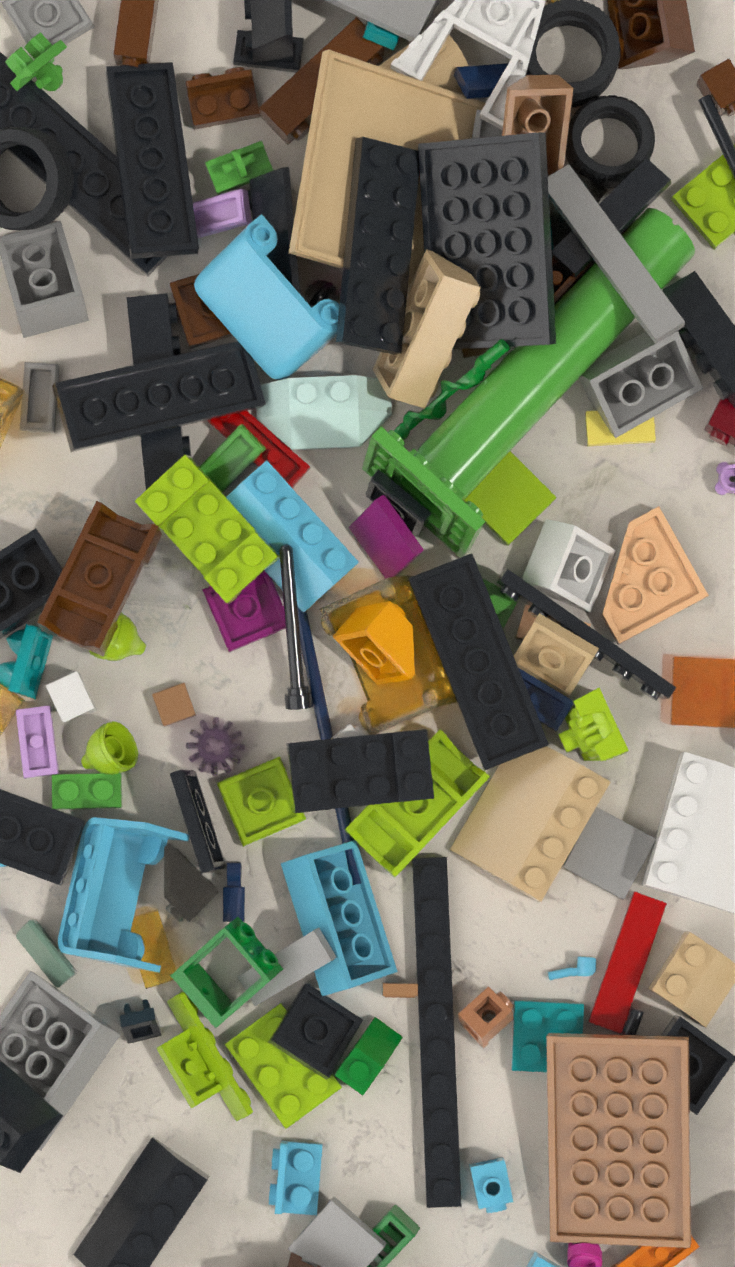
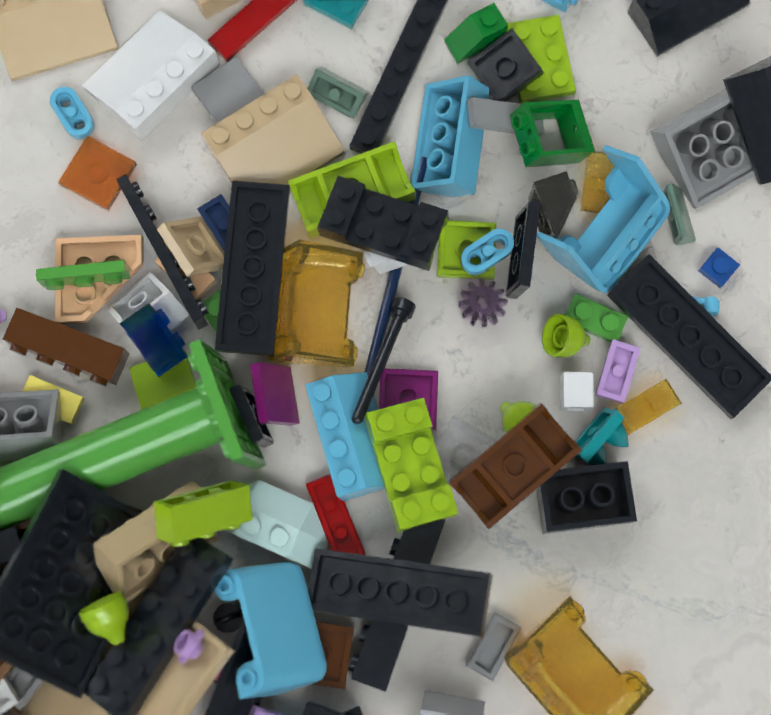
camera: 150 degrees left, 5 degrees down
(140, 1024) = (632, 131): black tile -> none
(174, 704) = (499, 351): medium nougat tile -> none
(198, 1064) = (603, 85): lime bracket -> none
(232, 457) = (363, 519): bright green tile -> none
(233, 801) = (486, 252): none -> medium azure plate
(233, 894) = (519, 191): dark blue bar -> none
(335, 237) = (189, 645): none -> lavender plate
(379, 642) = (319, 315): light orange slope -> none
(390, 374) = (202, 512): none -> lime brick
(400, 990) = (430, 68): medium nougat tile -> none
(431, 228) = (107, 617): none -> lime helmet
(438, 407) = (182, 476): green piece -> none
(486, 1003) = (382, 12): nougat brick -> none
(492, 915) = (337, 92): none -> sand green slope
(538, 530) = (154, 339): none -> clear blue brick
(585, 967) = (290, 23): medium azure hand -> none
(593, 729) = (192, 178): lime brick -> none
(633, 486) = (65, 346): none -> reddish brown brick
(652, 565) = (83, 274): none -> bright green plate

